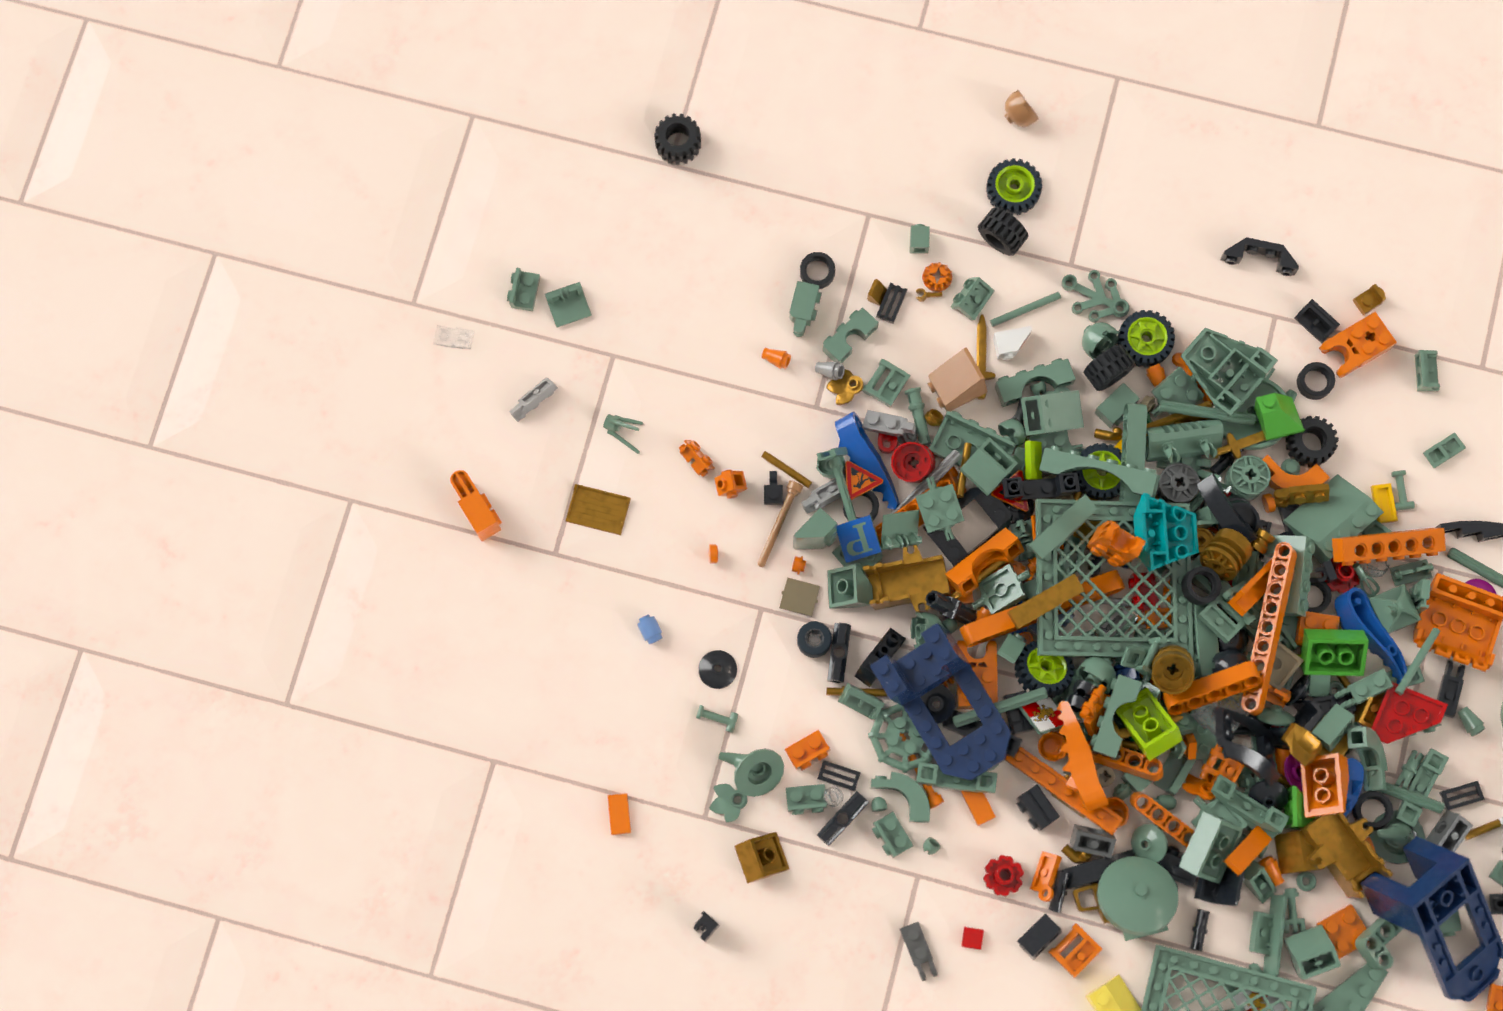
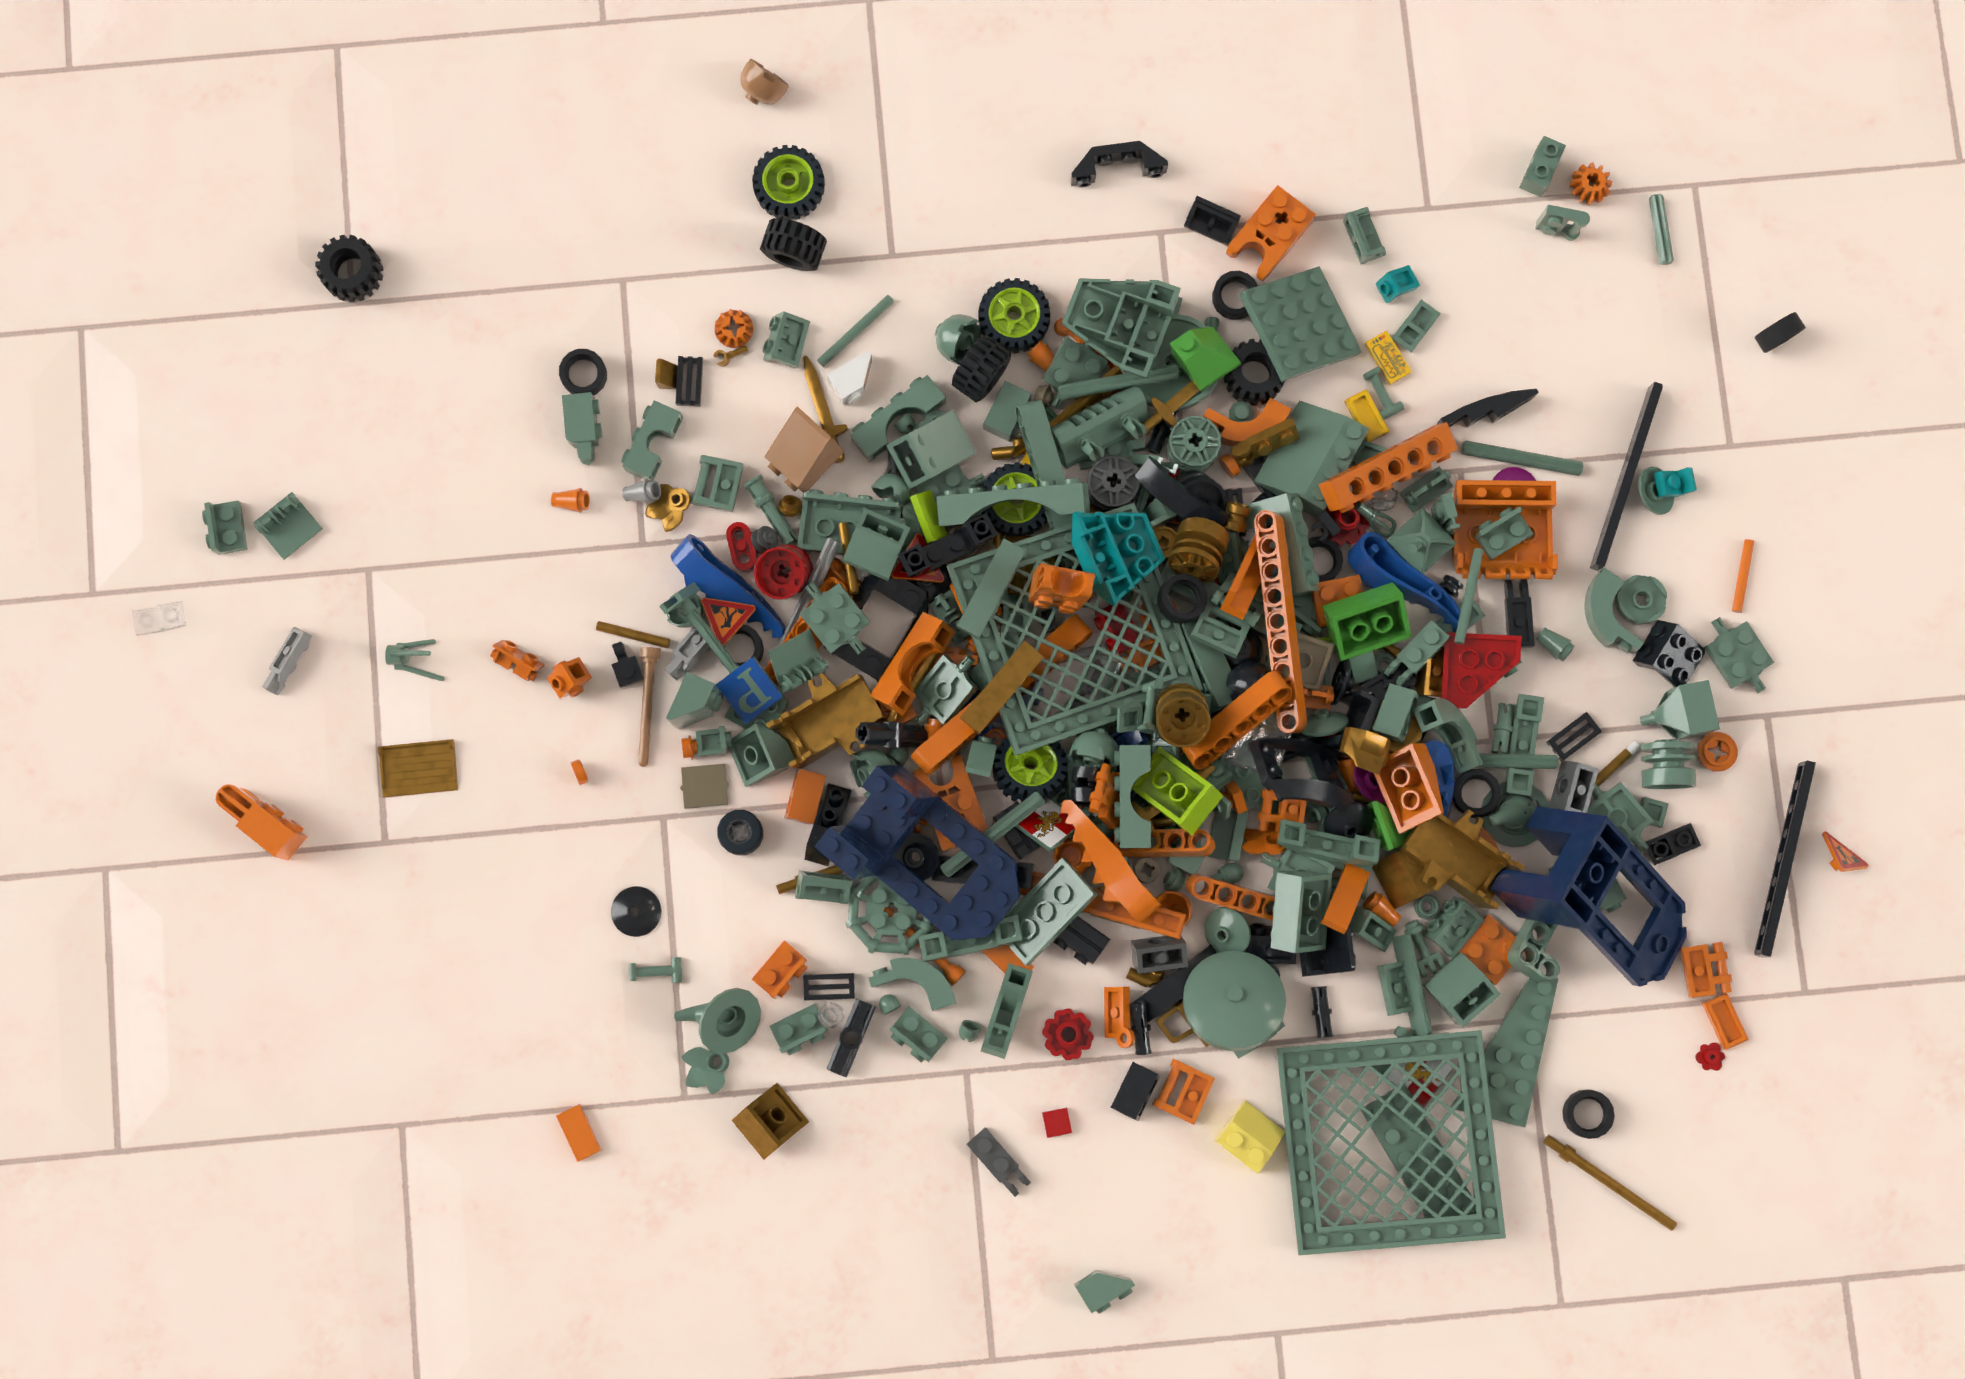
camera: 25 degrees left, 5 degrees up
(649, 629) = (534, 893): medium blue brick -> none
(708, 924) = (735, 1229): black hinge -> none
(818, 567) = (713, 741): none -> sand green bracket
(840, 640) = (780, 853): black piece -> none
(870, 630) = (805, 796): none -> orange hinge
(887, 424) = (735, 535): light grey hinge -> none
(919, 239) = (694, 289): sand green brick -> none
(964, 840) = (1006, 1011): none -> sand green arch
(1023, 777) = (1049, 909): none -> sand green plate
(1097, 297) = (938, 284): sand green plant -> none
(1321, 903) = (1453, 926): none -> sand green bracket
(1358, 418) = (1300, 323): none -> sand green plate
(1369, 299) = (1266, 171): pearl gold bracket -> none
(1406, 650) = (1451, 585): none -> black bush
(1414, 466) = (1388, 357): none -> yellow tile
(1440, 414) = (1397, 283): none -> teal bracket
(1459, 625) = (1504, 533): none -> sand green bracket
(1482, 863) = (1623, 811): none -> sand green plate

